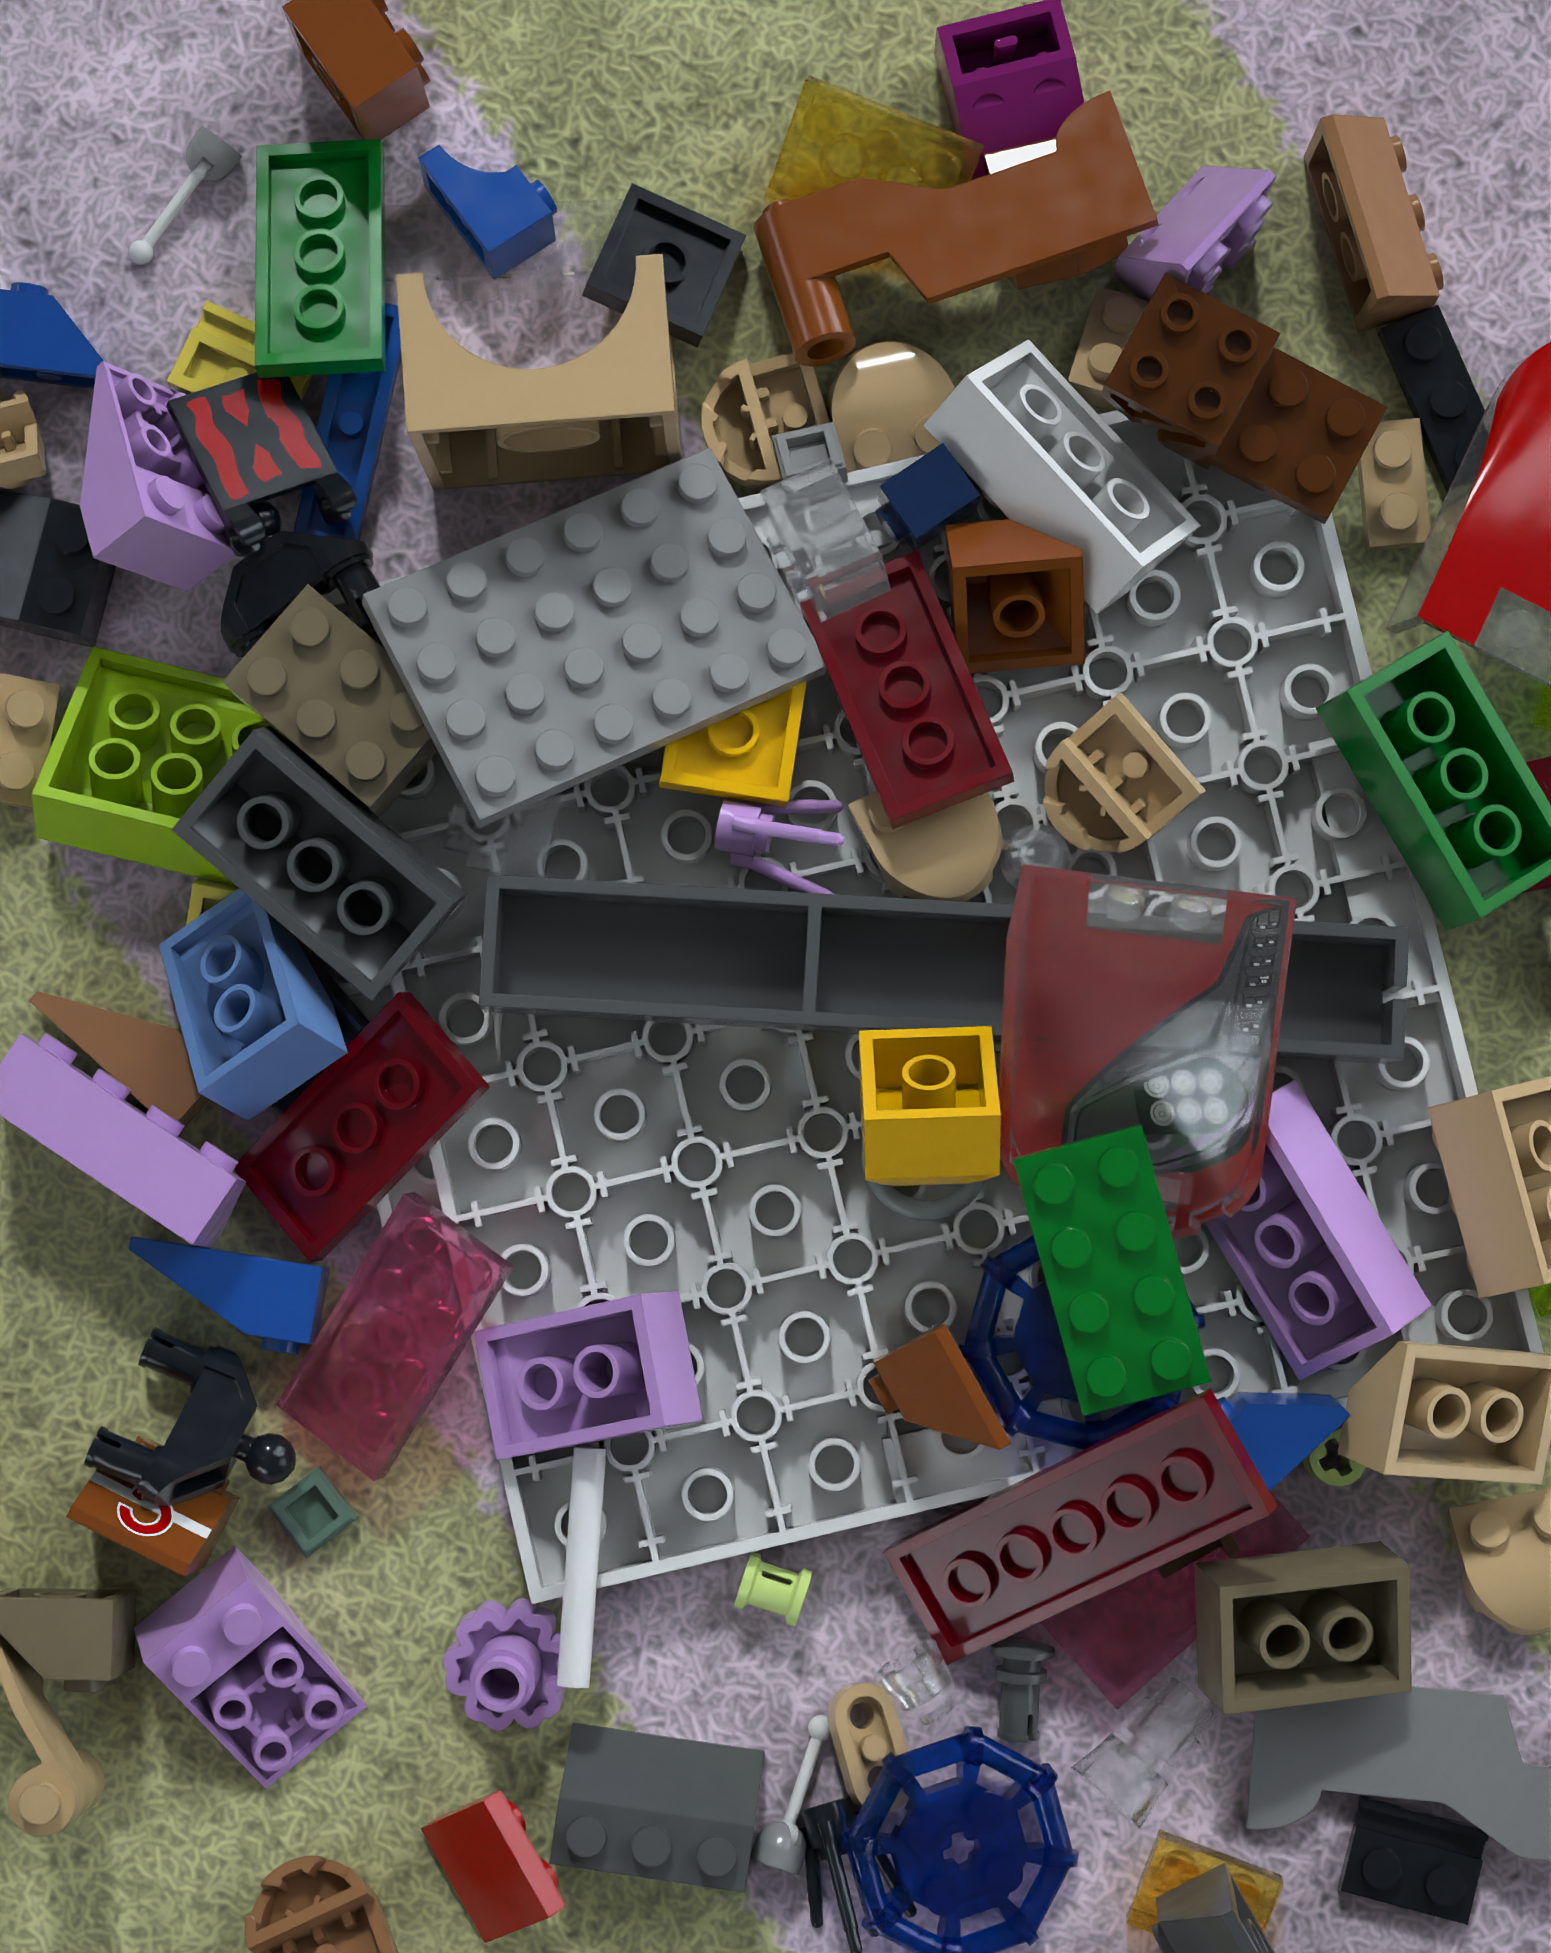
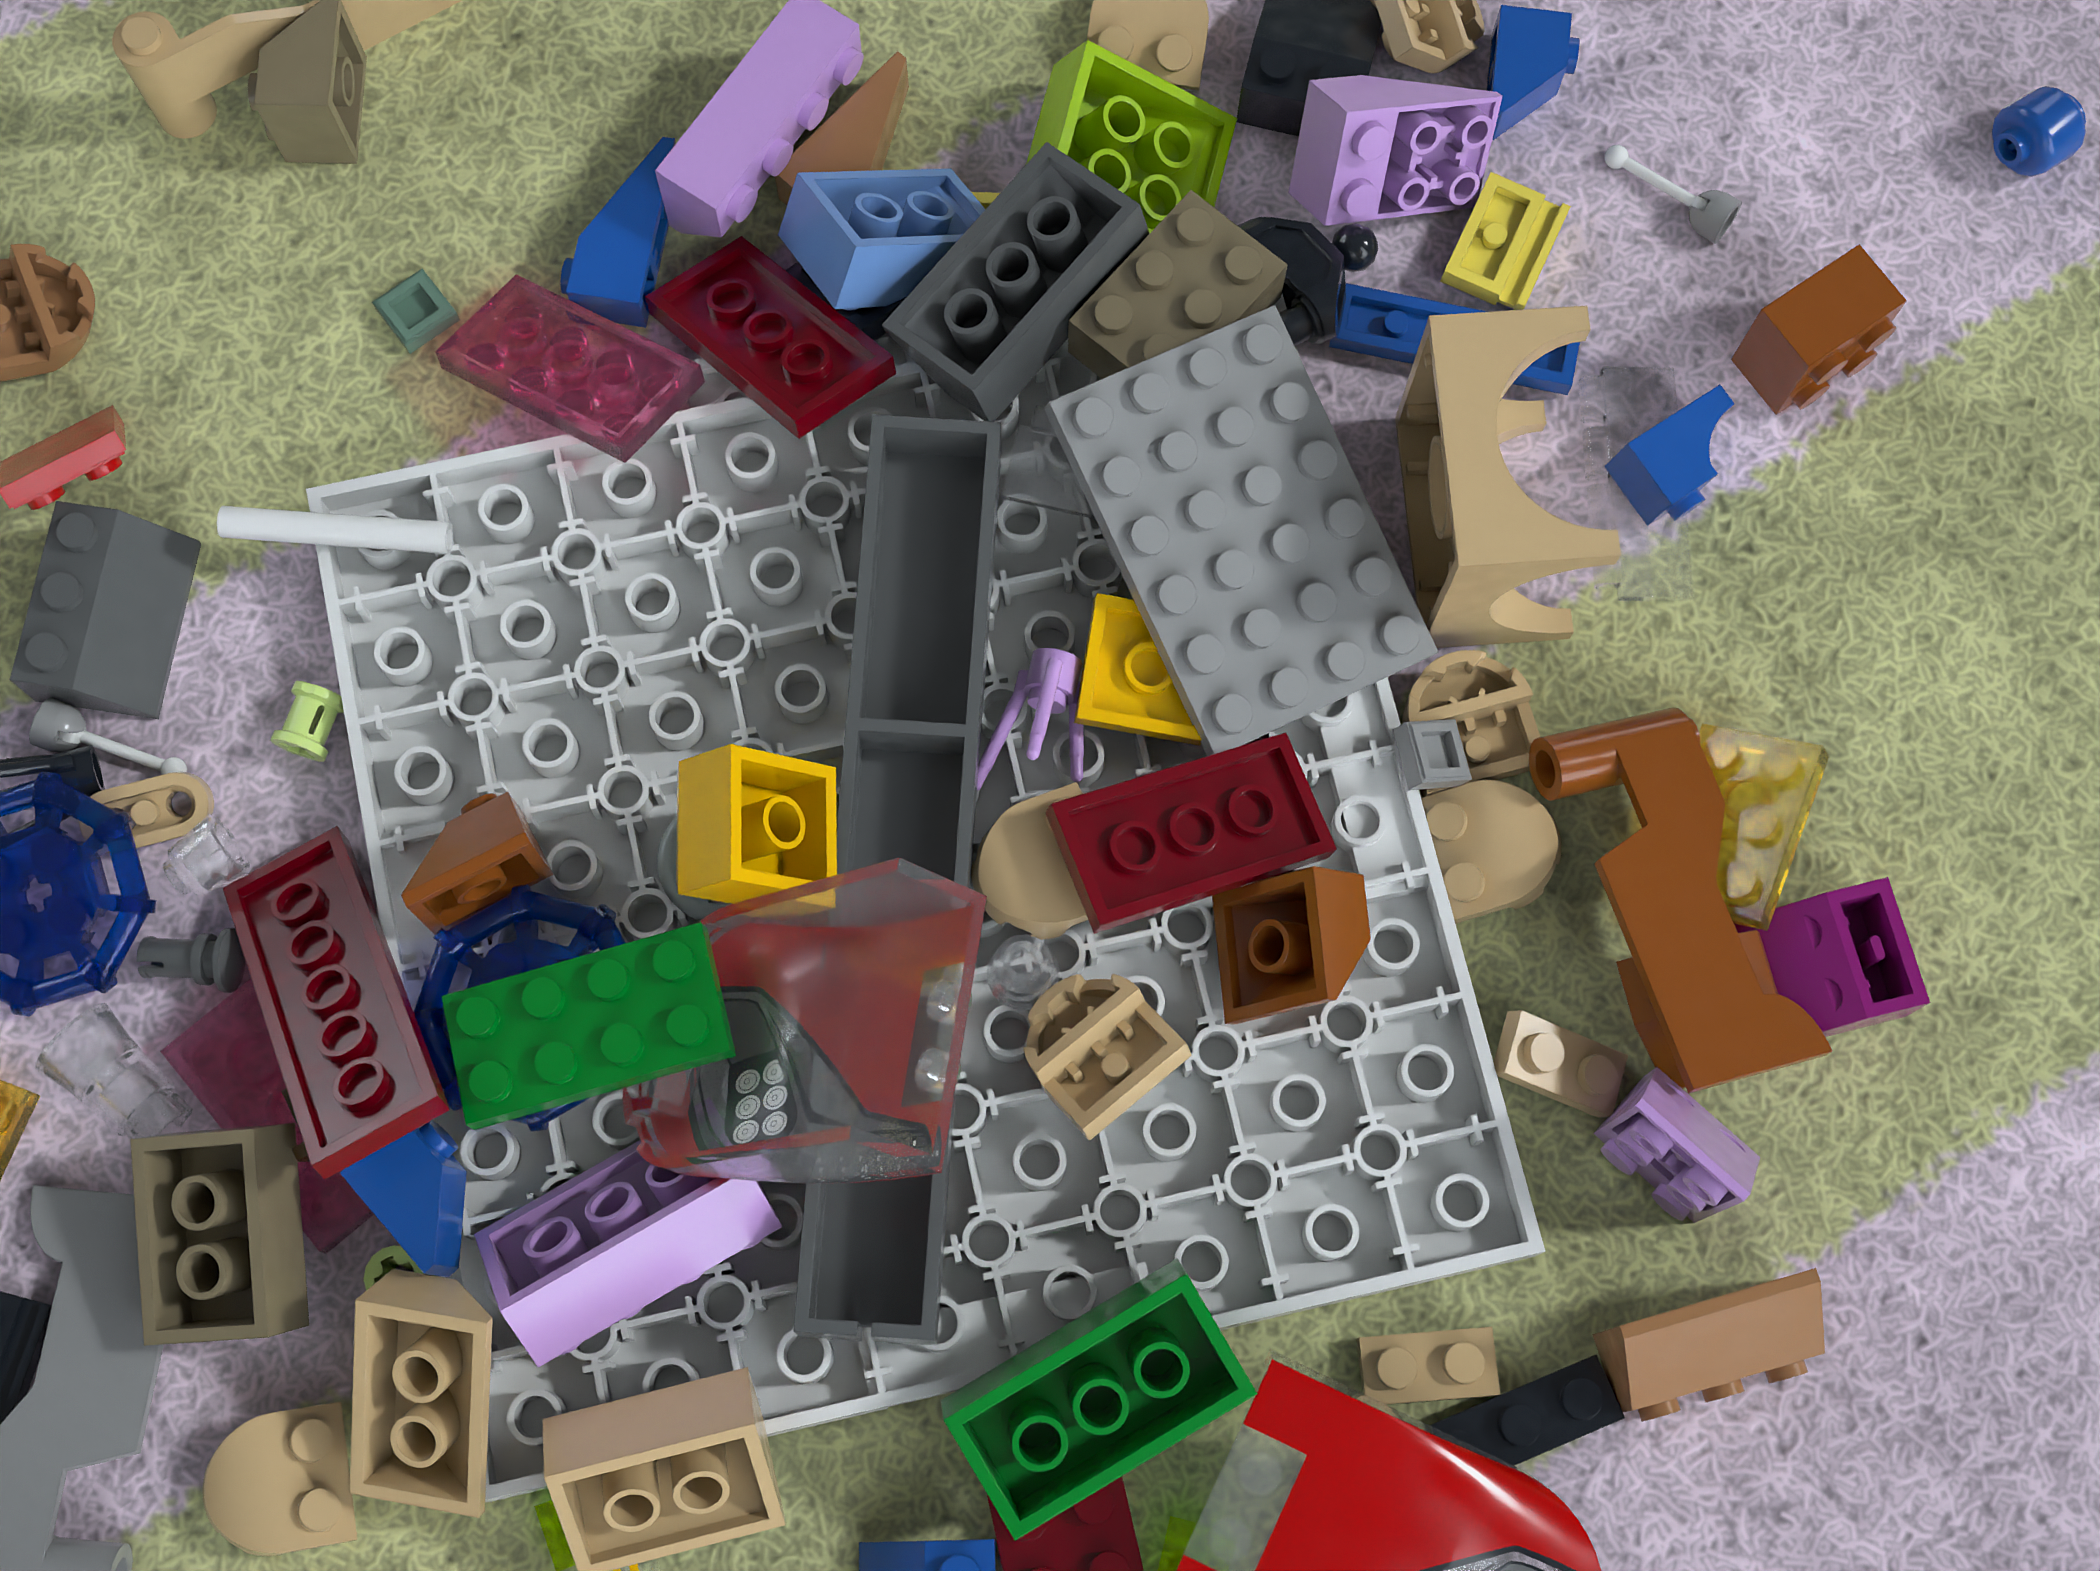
camera: 85 degrees right, 10 degrees down
(171, 1535) = (420, 161): dark orange slope -> none
(206, 1435) = (483, 201): black connector -> none
(247, 1667) = (273, 248): lavender slope -> none
(255, 446) = (1428, 238): flag -> none
(320, 258) = (1640, 297): green plate -> none
(506, 1664) = (255, 469): lavender plant -> none
(588, 1374) = (516, 535): lavender slope -> none
(695, 259) = (1627, 625): black plate -> none
(825, 541) = (1342, 752): clear brick -> none
(926, 498) = (1392, 857): dark blue brick -> none
(1061, 470) = (1423, 998): white slope -> none
(1240, 401) = (1504, 1180): reddish brown piece -> none

